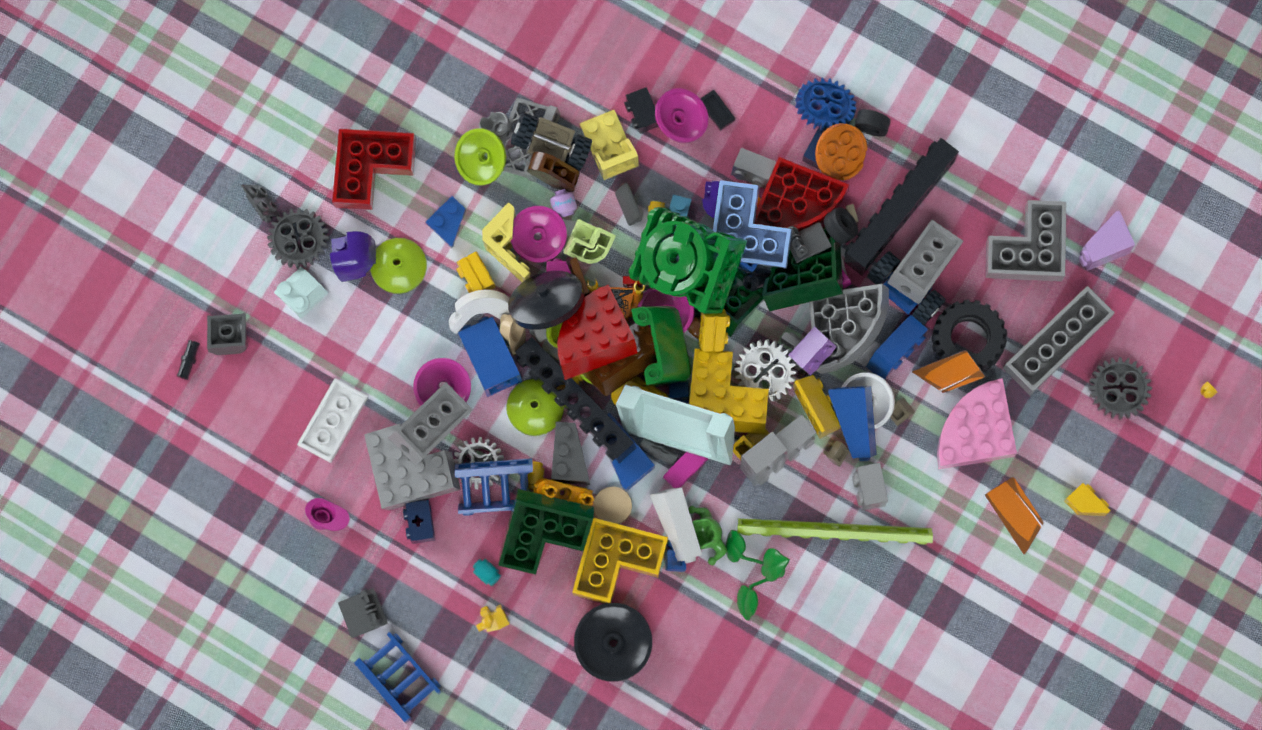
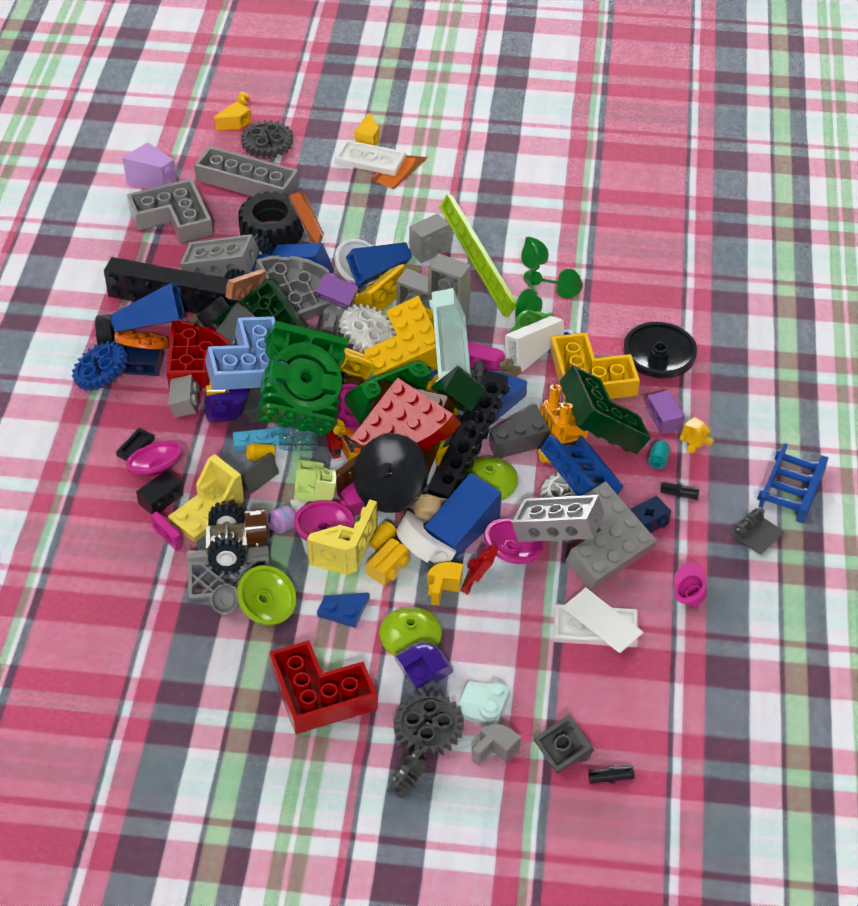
camera: 120 degrees left, 30 degrees down
(258, 285) = (496, 739): none -> light grey brick
(332, 426) = (602, 620): none -> white sticker
(428, 345) = (478, 566): none -> red wing
(436, 316) = (444, 577): none -> yellow brick
(439, 569) = (680, 490): none -> black axle
(507, 281) = (382, 535): none -> yellow cone
(532, 603) = (665, 412): none -> medium lavender brick
(590, 104) = (166, 531): none -> dark pink plate
(607, 396) = (460, 388): none -> dark green slope
(612, 505) = (539, 392): tan tile -> none
(652, 482) = (509, 368): none -> dark tan tile
(850, 265) = (241, 286): none -> nougat wing
(869, 167) = (156, 308): none -> blue slope
(977, 428) = (346, 200): bright pink brick -> none
(1045, 489) = (370, 157): none -> white tile
(1174, 367) = (233, 117): none -> yellow slope

